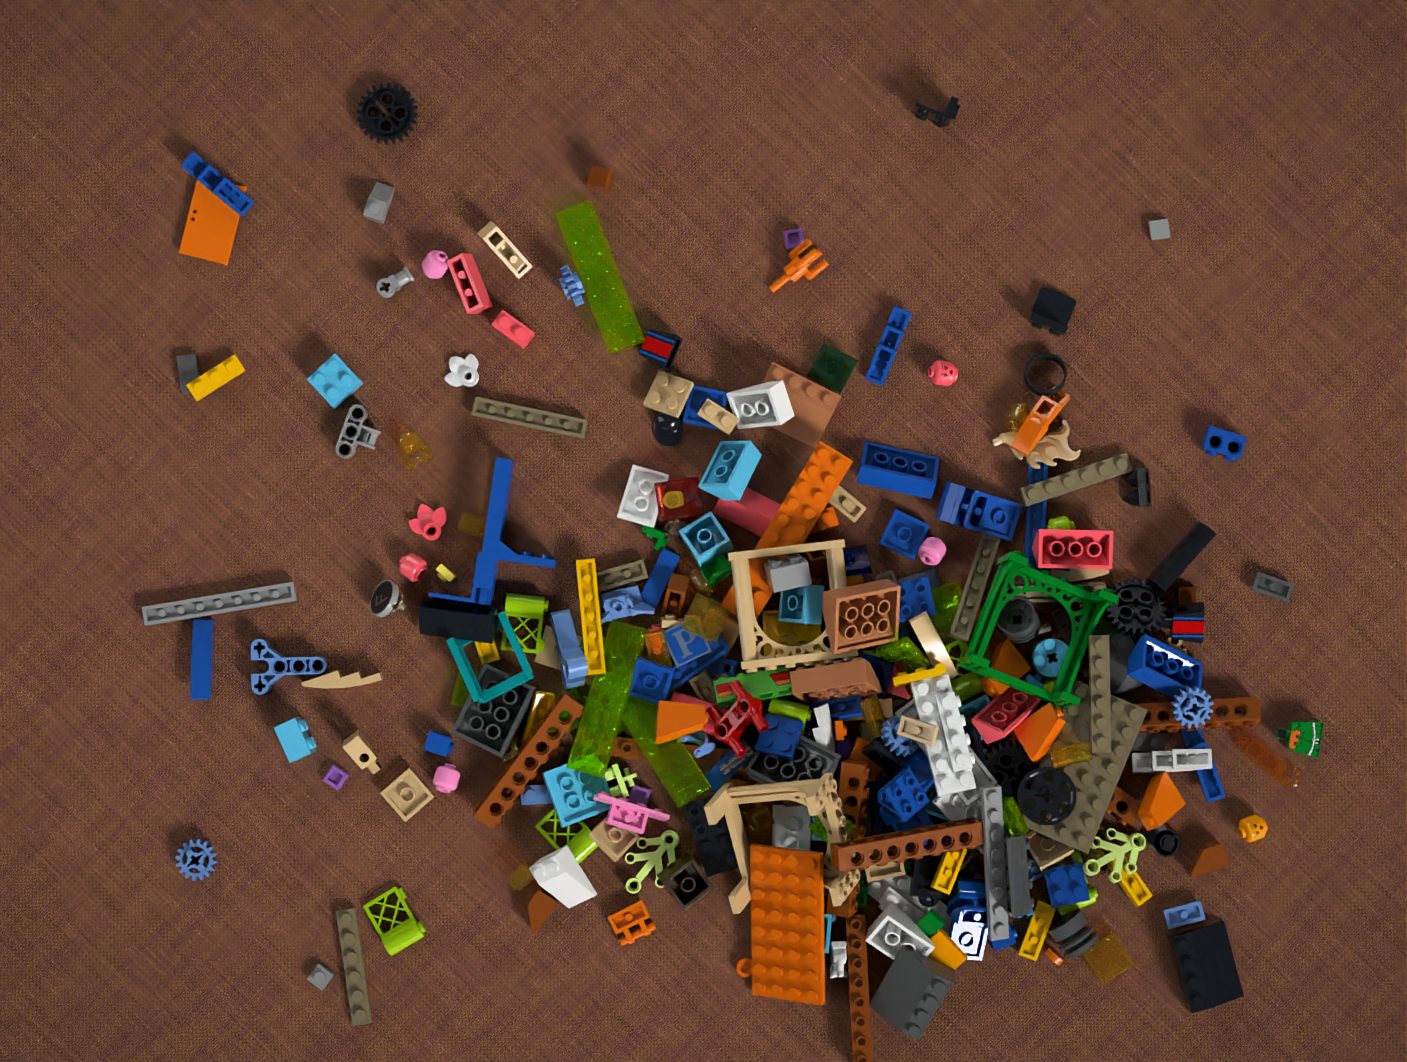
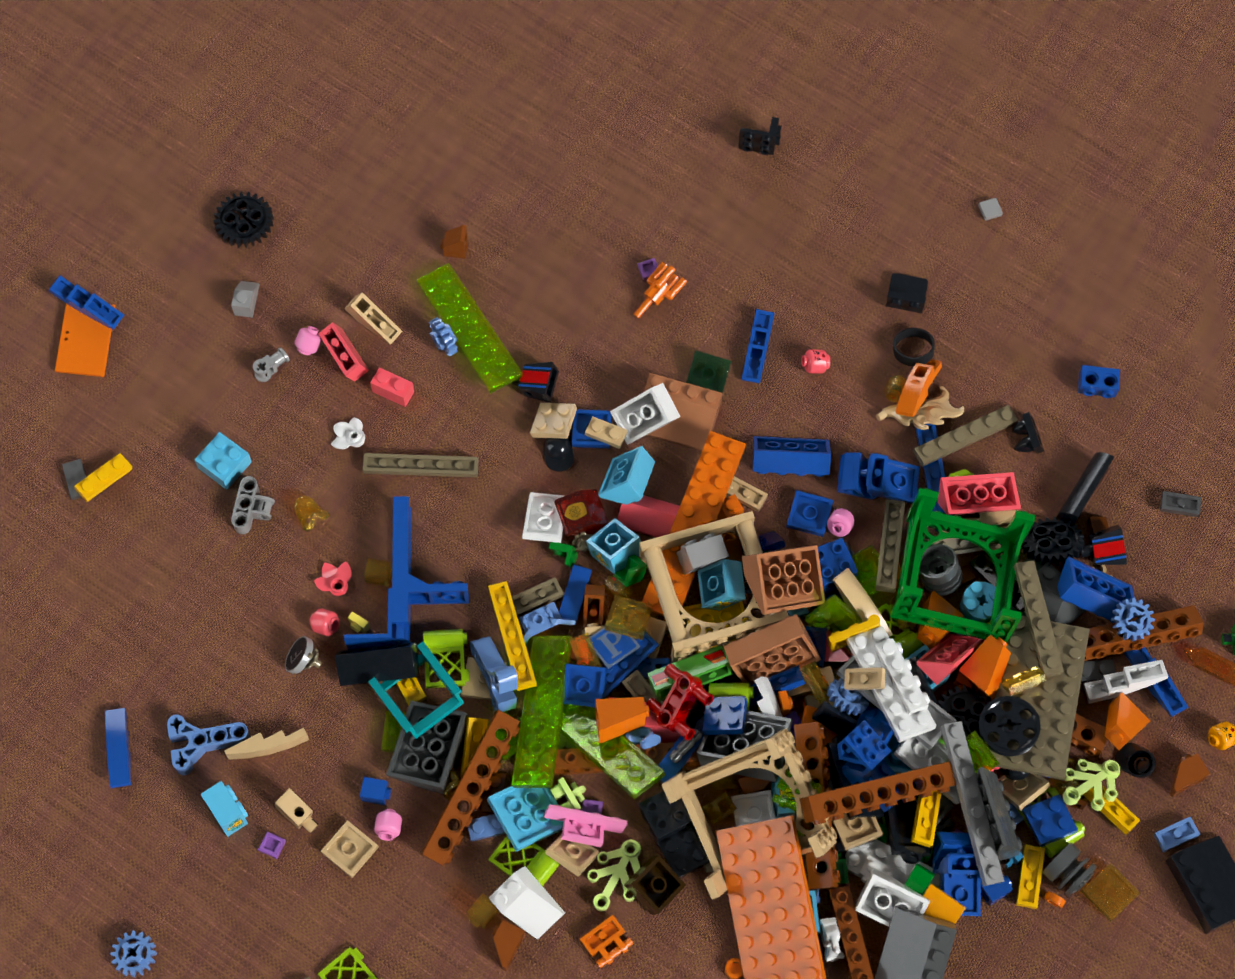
camera: 15 degrees left, 20 degrees down
(219, 603) = (129, 690): light grey plate -> none

